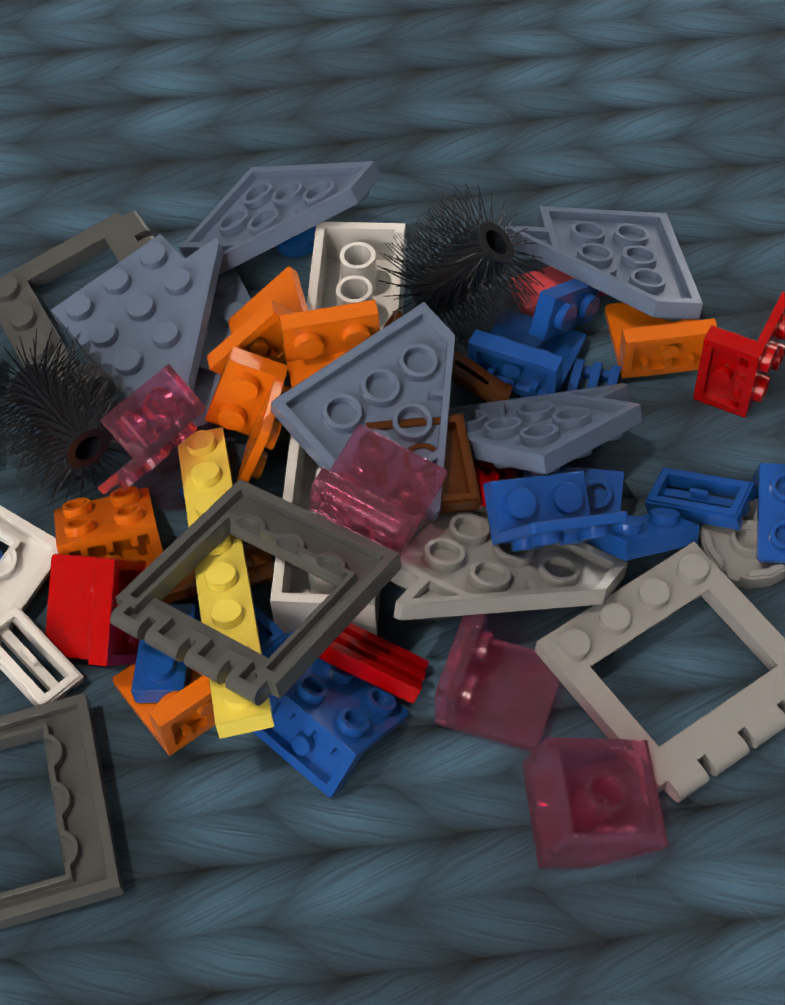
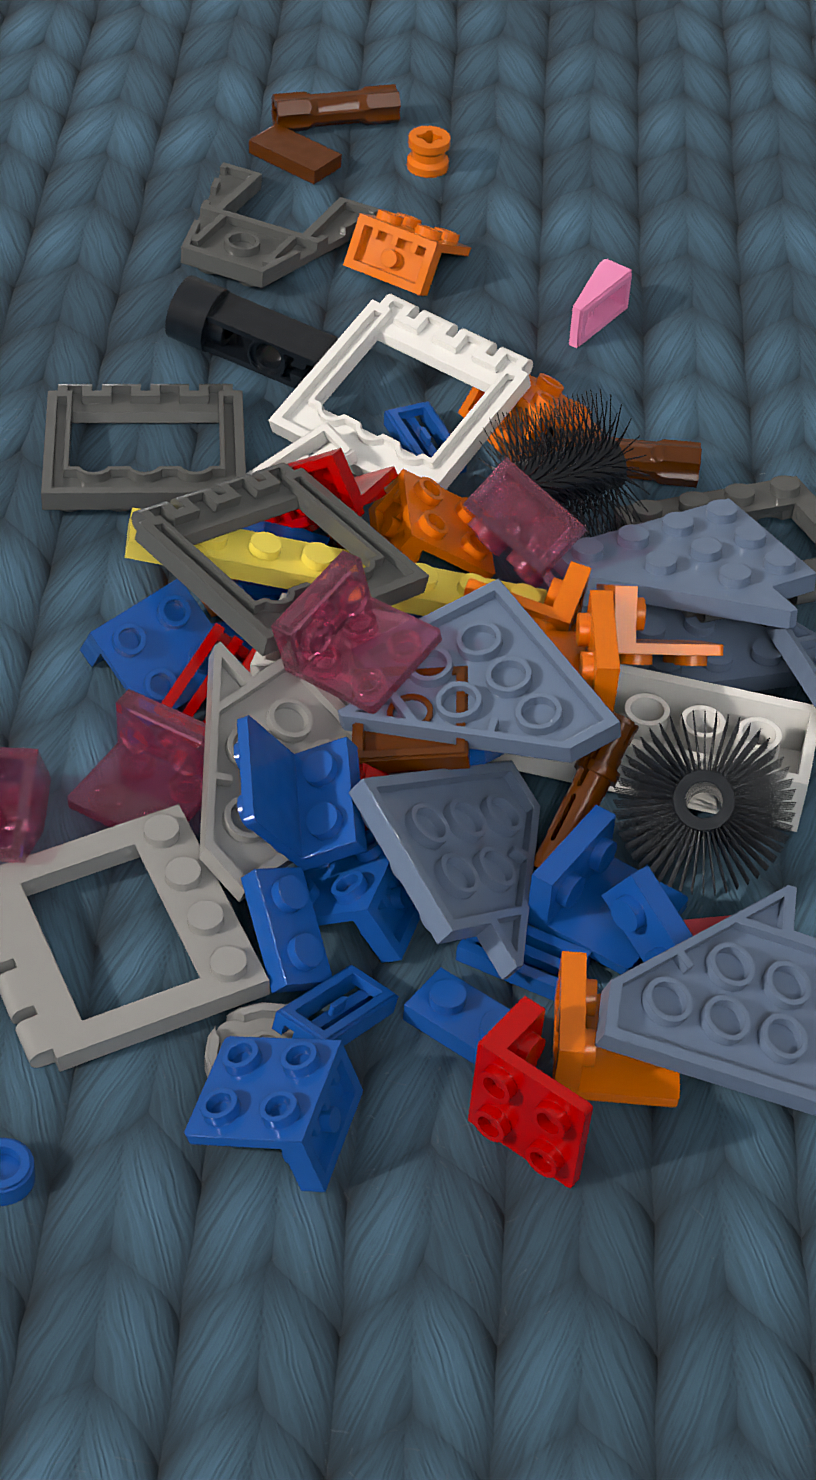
camera: 95 degrees right, 10 degrees down
(665, 423) = (453, 1013): none -> blue plate

